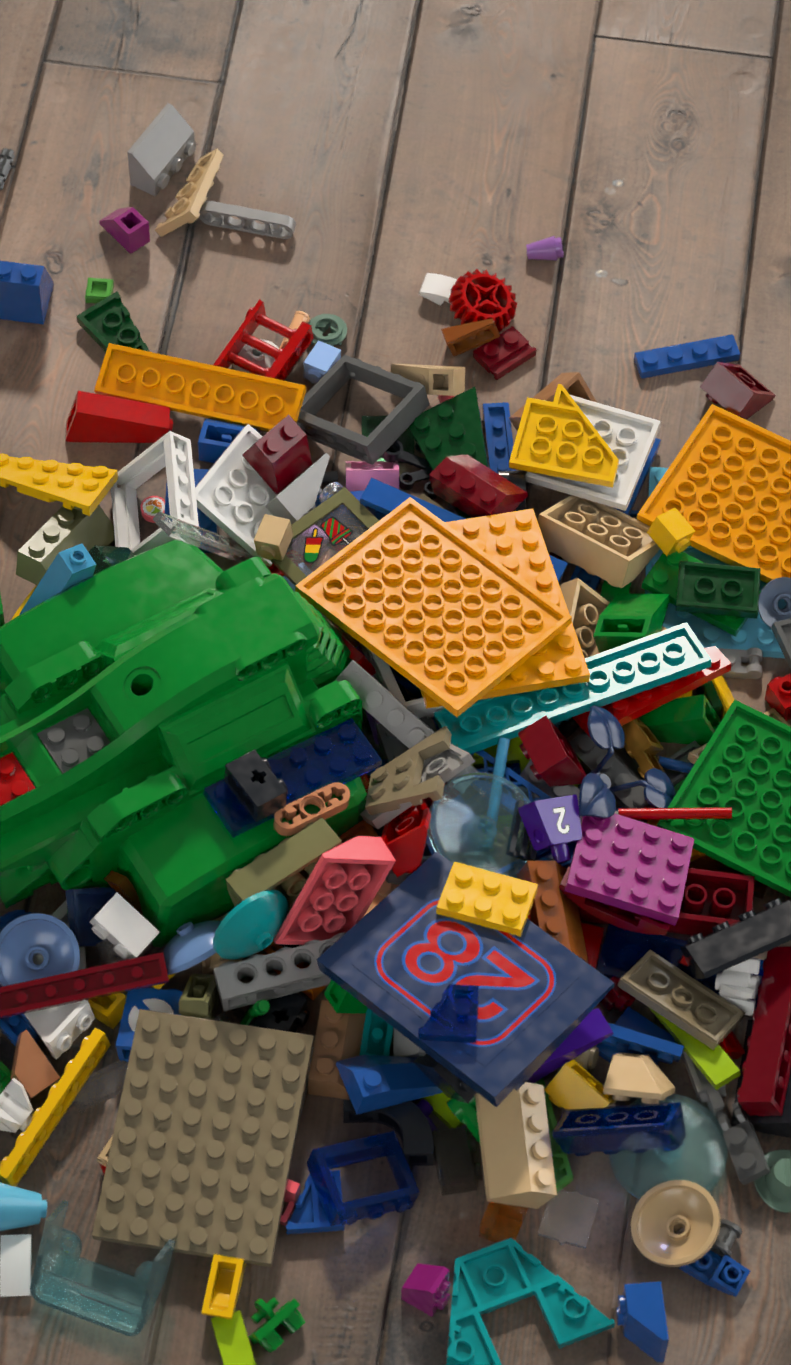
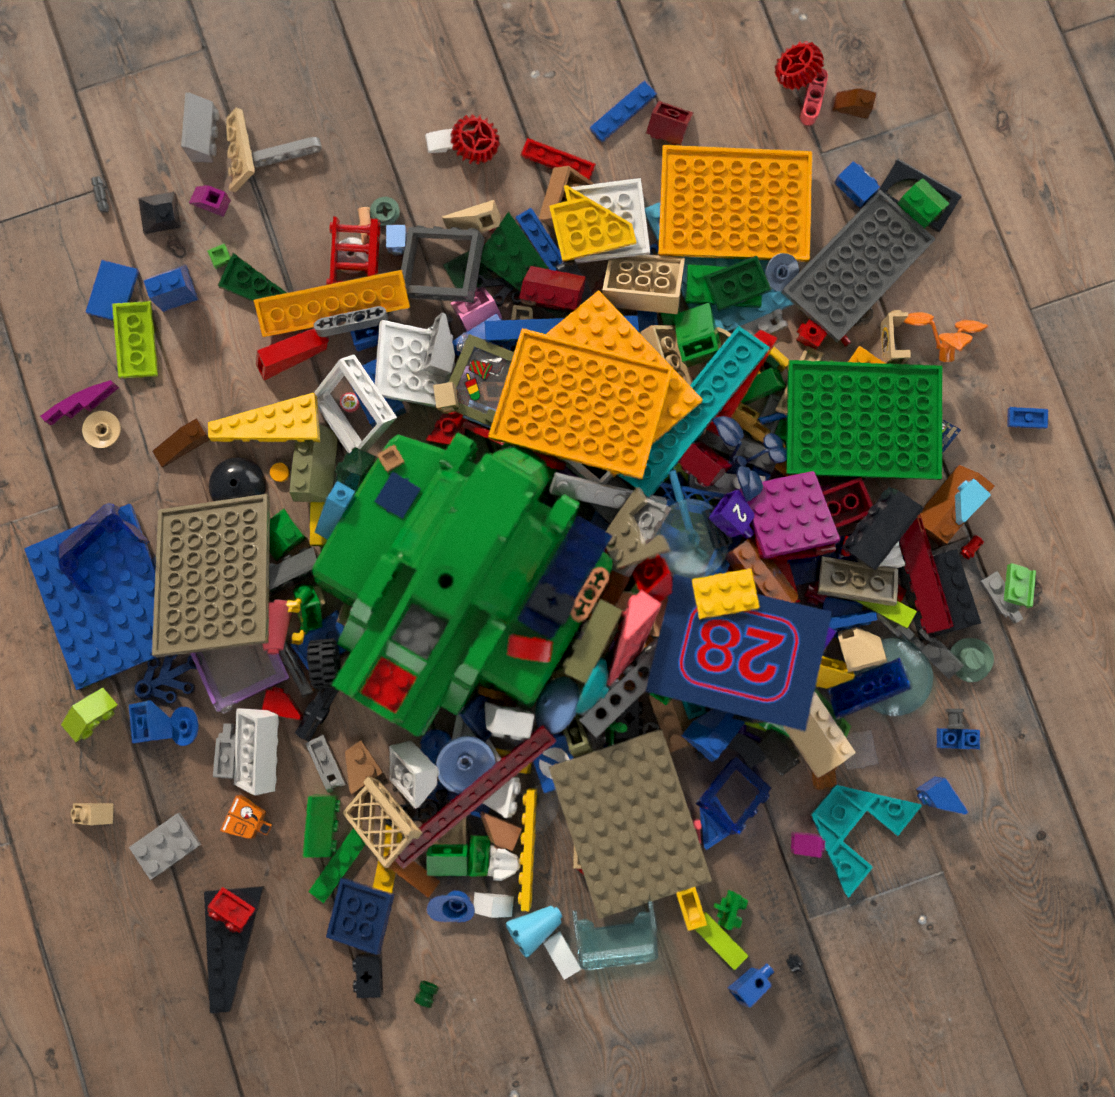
camera: 25 degrees left, 25 degrees up
(16, 541) = (279, 472): none -> light orange tile
(58, 218) = (159, 212): none -> black slope
(145, 594) = (397, 495): none -> dark blue piece
(161, 553) = (390, 458): none -> medium nougat tile
(199, 833) = (530, 649): none -> red slope
(201, 538) = (404, 426): clear tile -> none
(208, 413) = (350, 319): none -> dark grey beam
(280, 455) = (413, 330): dark red slope -> none
(454, 1016) = (753, 691): clear blue wing -> none
(469, 335) = (477, 172): dark orange slope -> none
(504, 353) = (506, 168): dark red plate -> none
(545, 249) = (491, 75): medium lavender cone -> none
(563, 360) = (556, 158): none -> red tile
(667, 1209) = (925, 741): tan dish -> none
(671, 532) = (690, 258): yellow brick -> none
(676, 813) = (795, 461): red bar -> none

